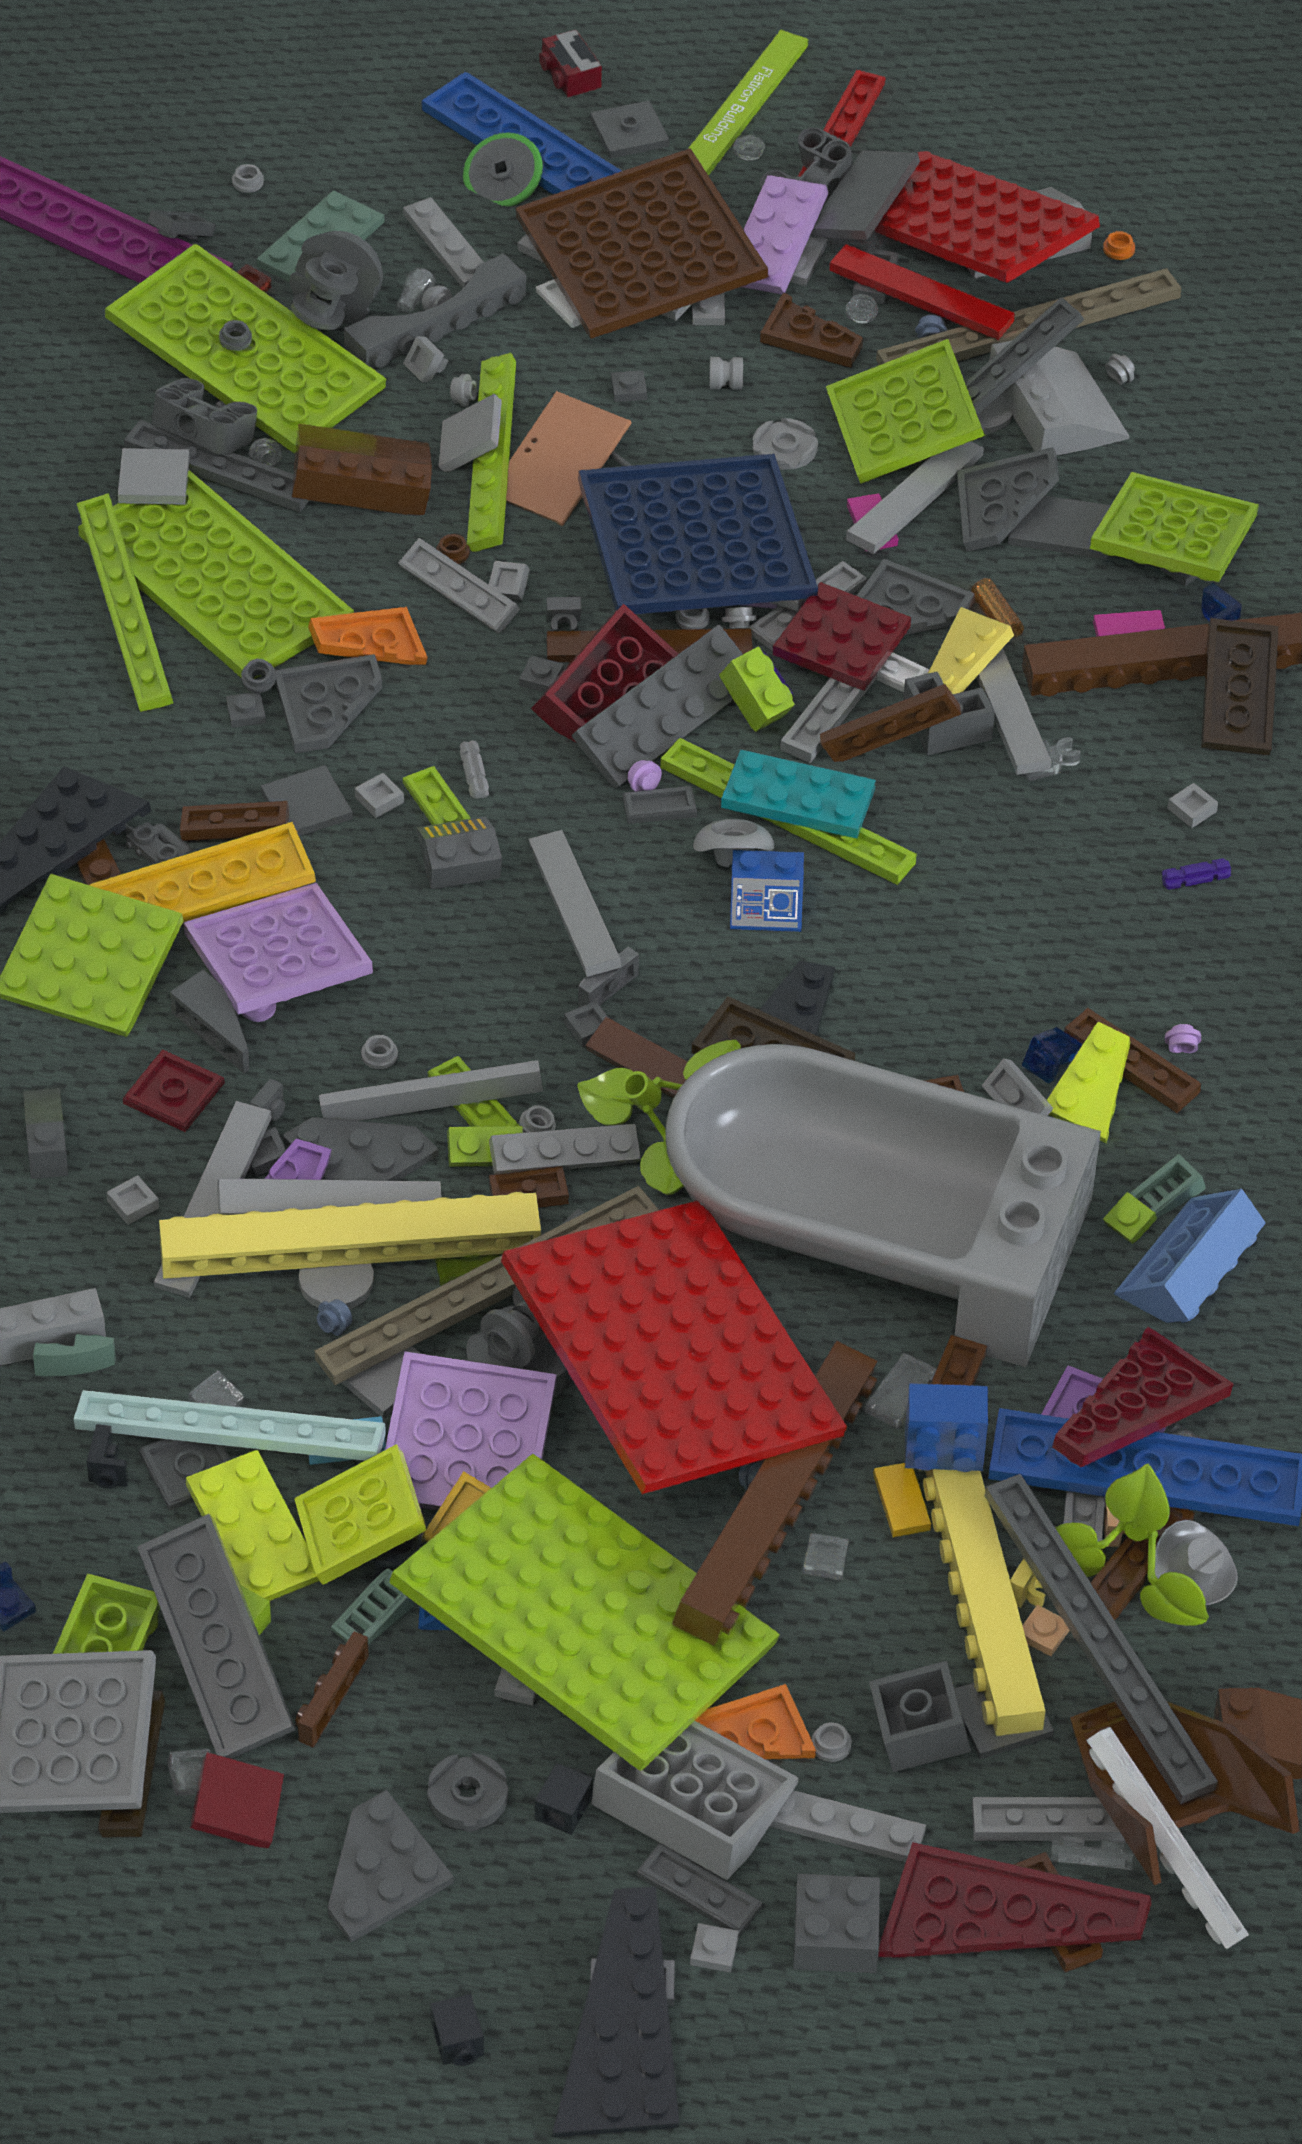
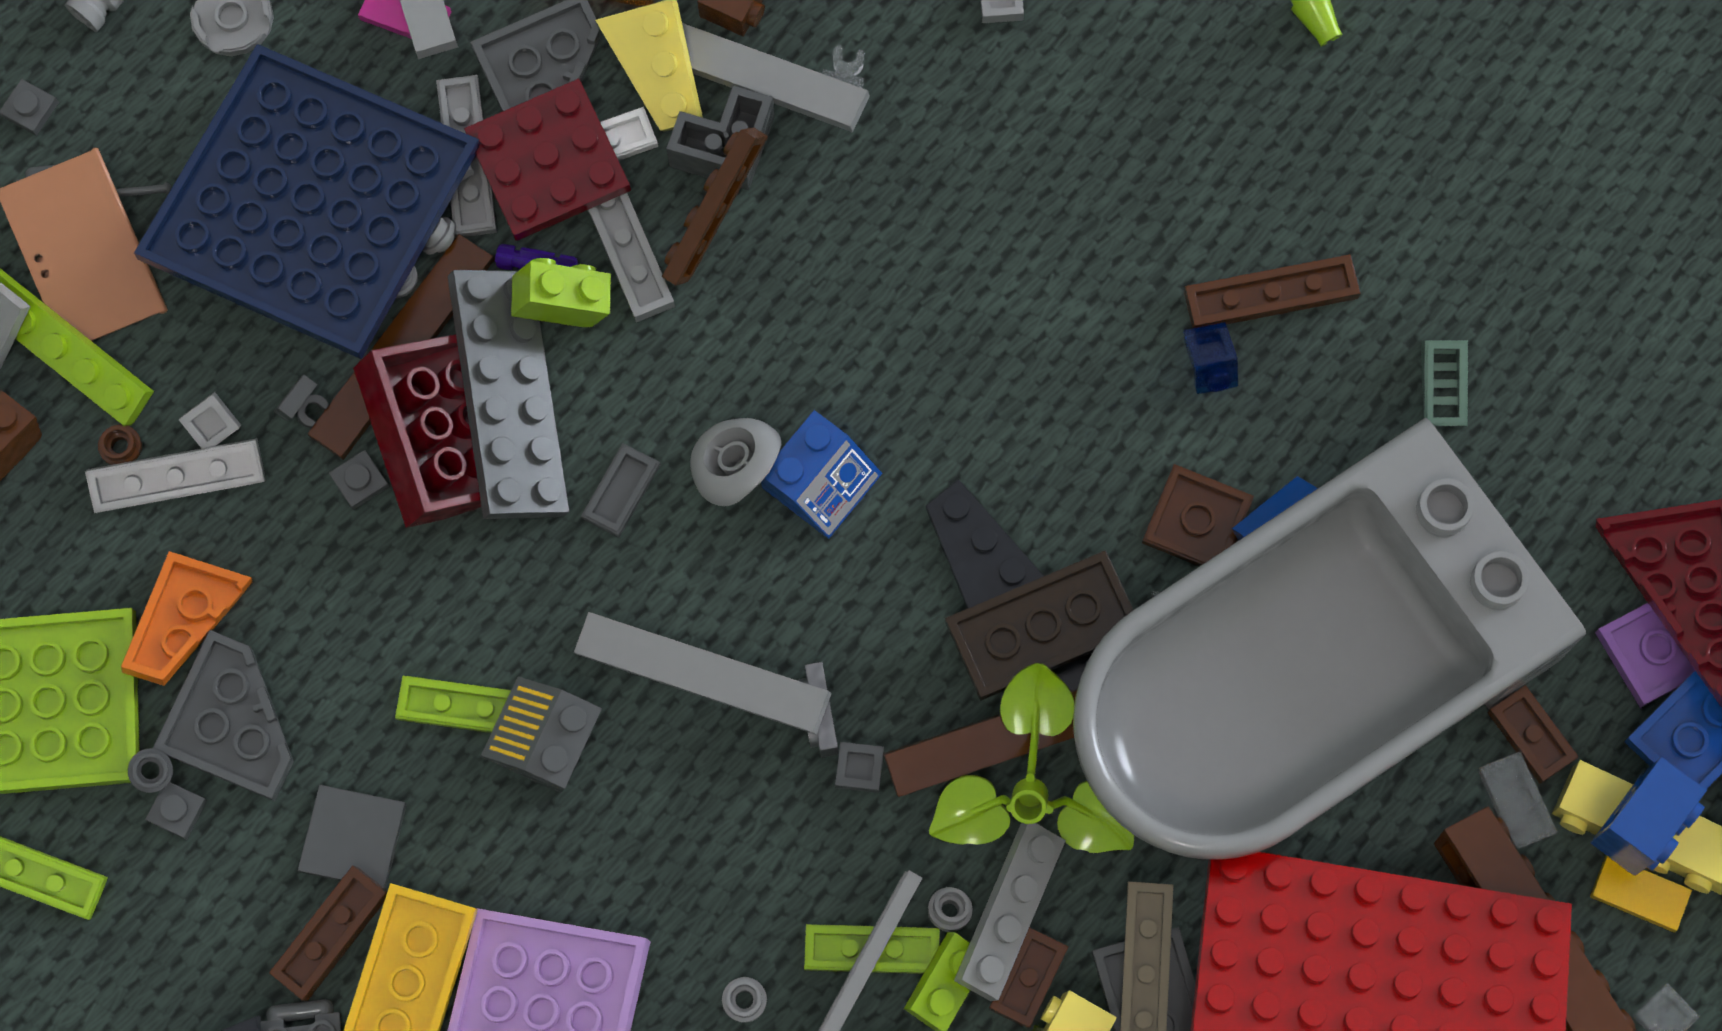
camera: 50 degrees left, 25 degrees up
(379, 795) = (402, 759): light grey plate -> none
(474, 769) = (437, 638): light grey axle -> none
(644, 775) = (578, 480): lavender plate -> none
(798, 793) = (722, 354): teal plate -> none
(866, 851) = (725, 376): lime plate -> none
(1013, 1088) = (1245, 431): light grey plate -> none
(1092, 1080) = (1278, 352): neon yellow wing -> none
(1130, 1218) = (1462, 435): lime plate -> none
(1183, 1039) = (1281, 228): lavender plate -> none
(1192, 1256) = (1543, 420): medium blue slope -> none
(1196, 873) = (1084, 60): dark purple axle -> none

